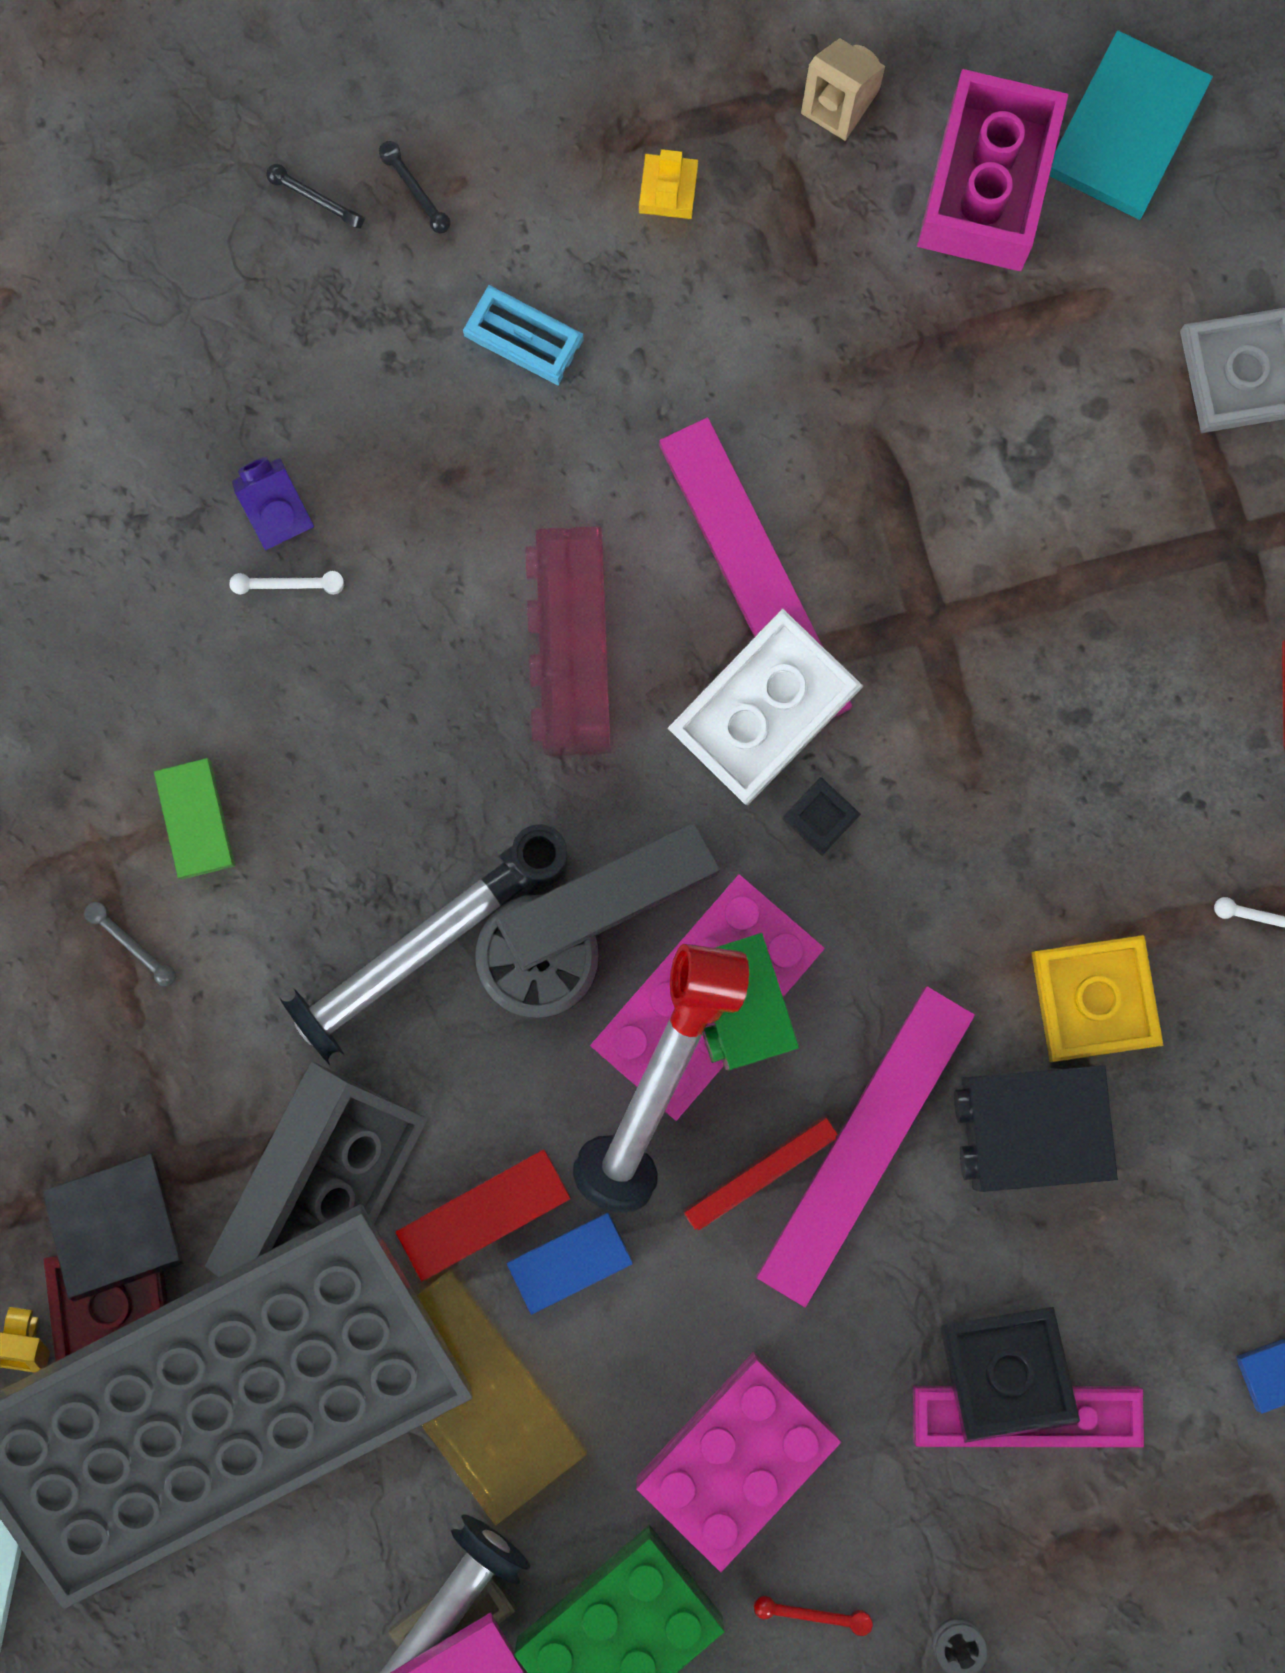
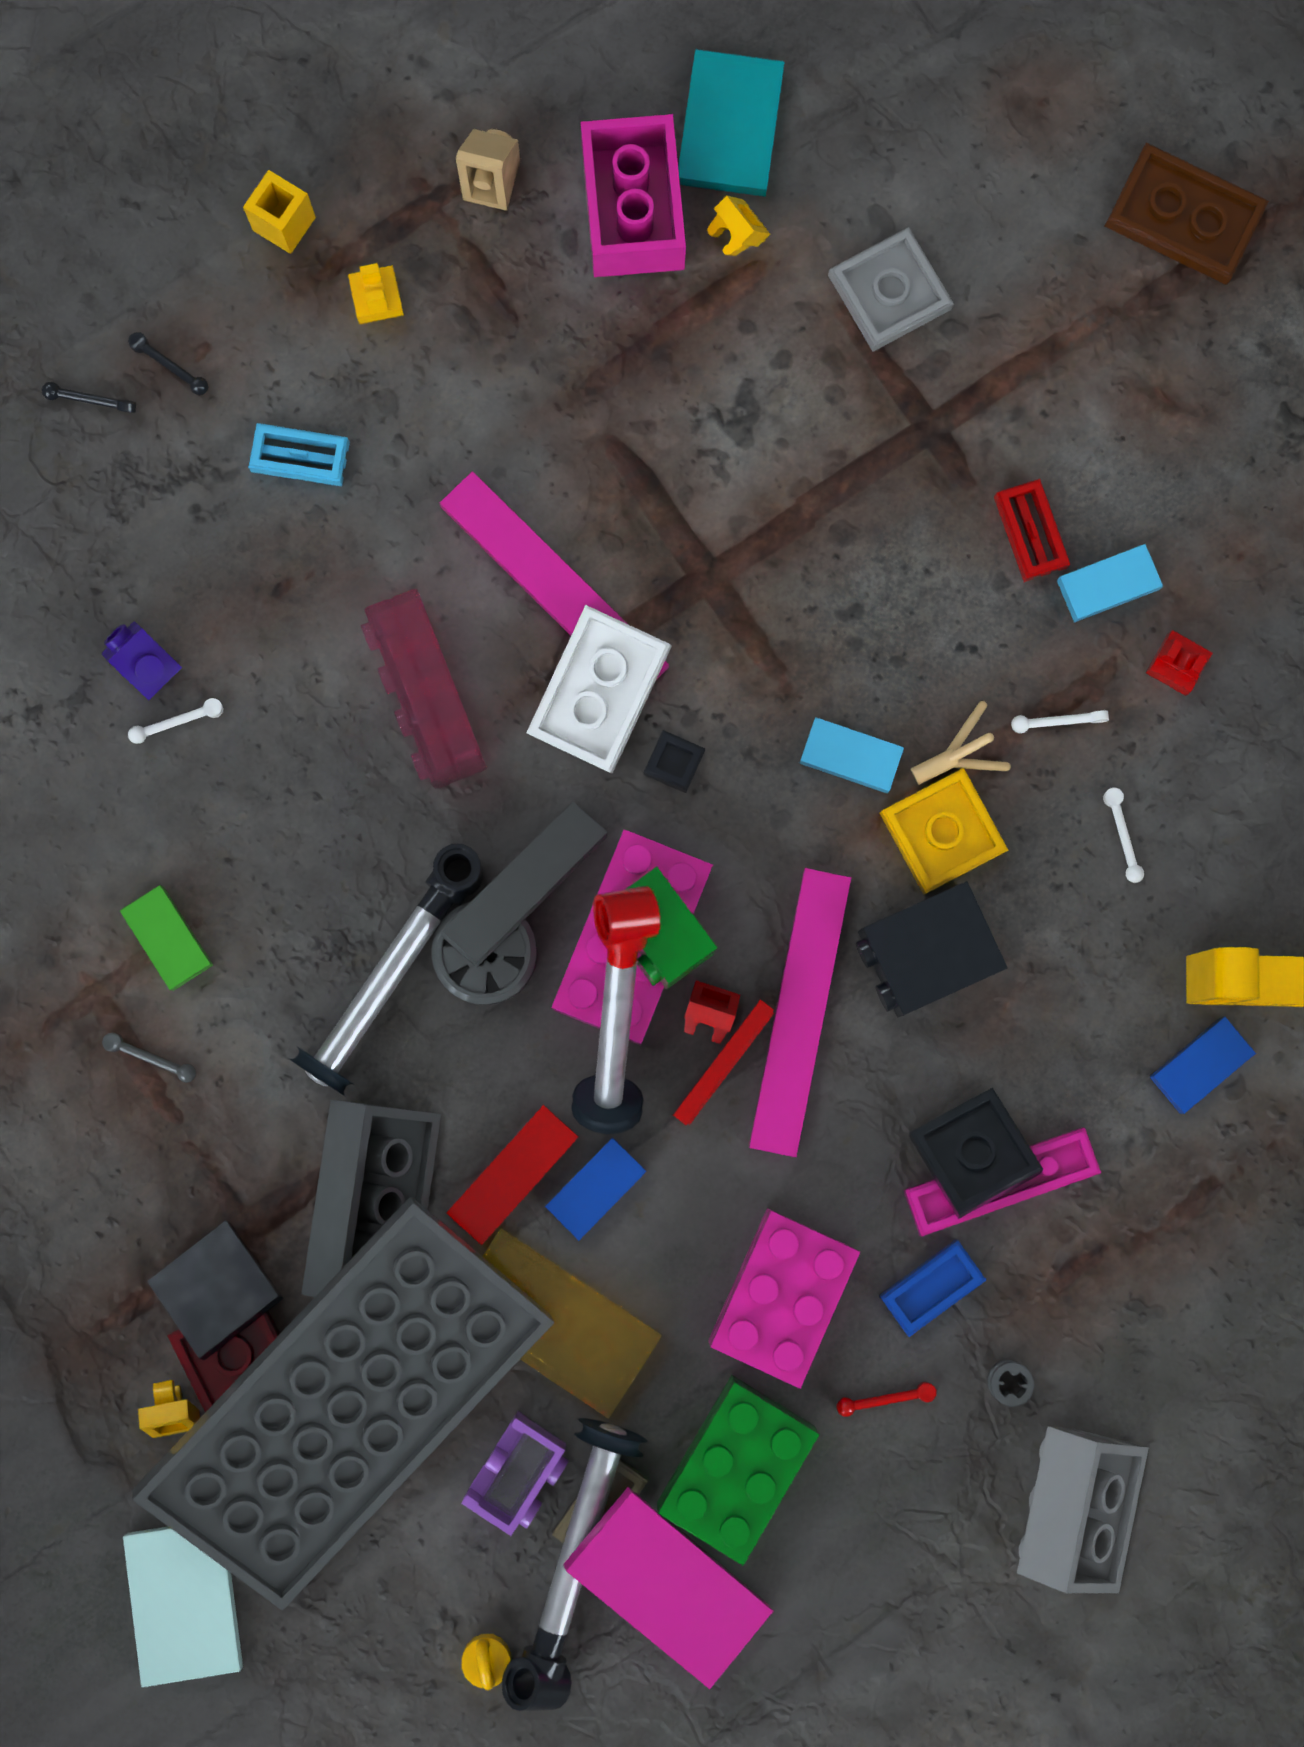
camera: 25 degrees left, 0 degrees up
(371, 1551) = (515, 1474): none -> medium lavender window
(594, 59) = (279, 211): none -> yellow brick
(769, 1107) = (711, 1007): none -> red tile
(908, 1508) = (932, 1288): none -> blue tile
(1022, 877) = (851, 755): none -> medium azure tile
(1103, 242) = (741, 222): none -> yellow tile
(1138, 918) = (954, 754): none -> tan plant

